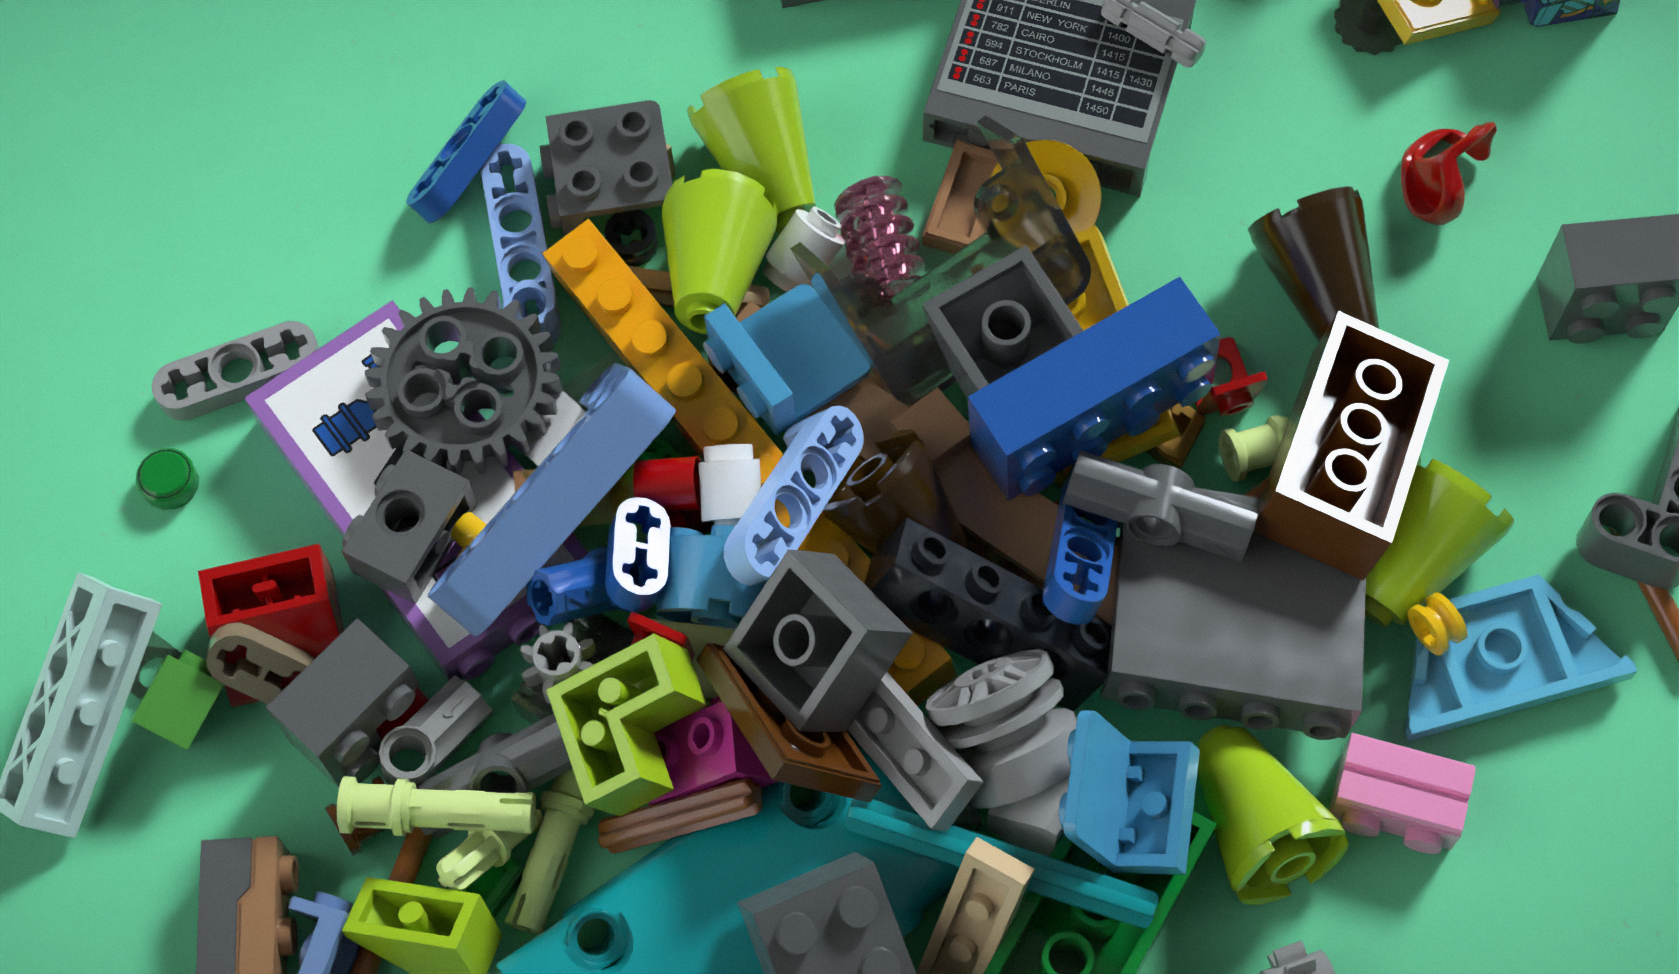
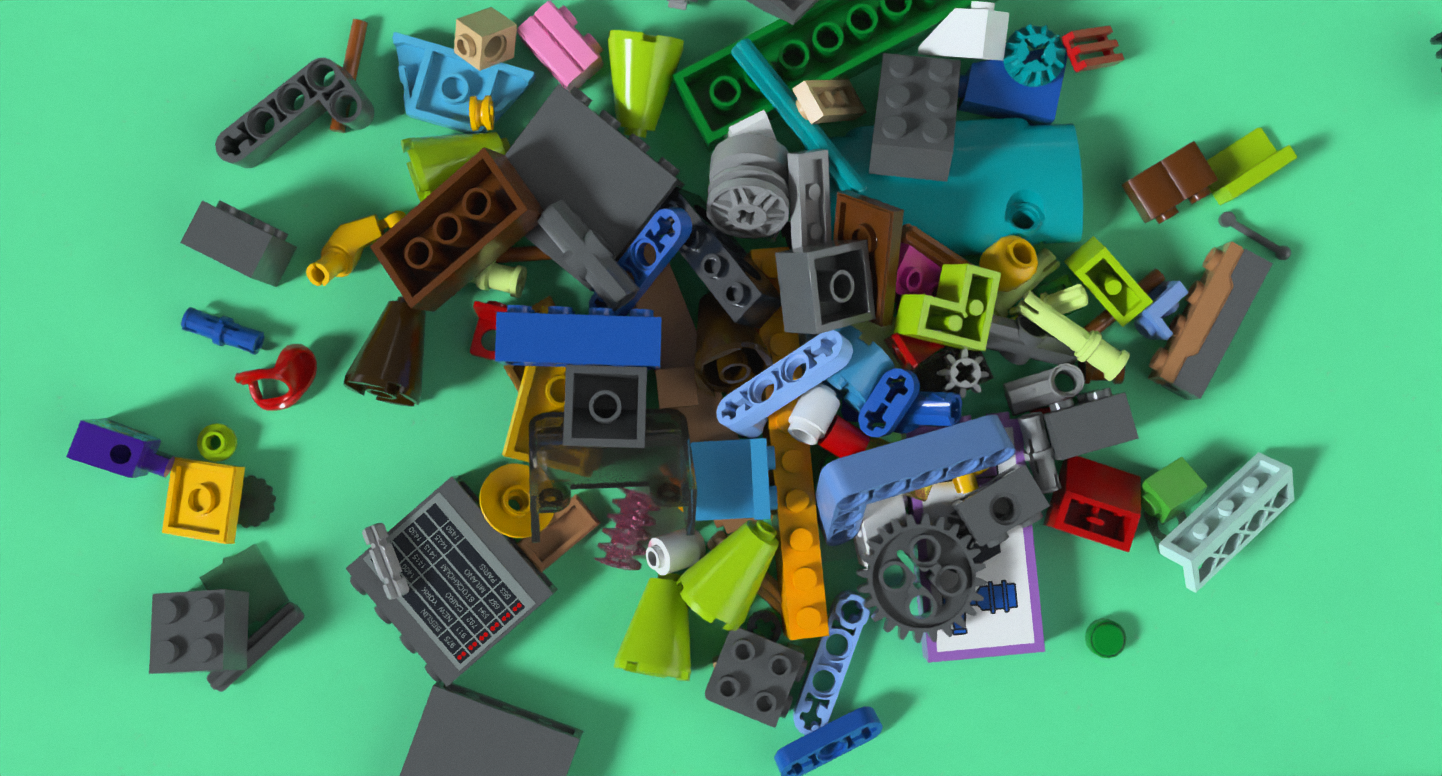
camera: 150 degrees left, 20 degrees up
(190, 369) = (1062, 677): light grey beam -> none
(264, 665) = (1118, 478): dark tan beam -> none
(394, 628) = (1039, 452): none -> light grey pin
(581, 861) = (1013, 258): none -> yellow head
(1129, 798) = (714, 102): dark azure bracket -> none
(1458, 70) = (227, 446): none -> lime plate
(1485, 371) = (346, 246): none -> yellow arm
(1508, 728) = (485, 38): none -> tan brick
(1590, 176) = (222, 330): none -> blue pin

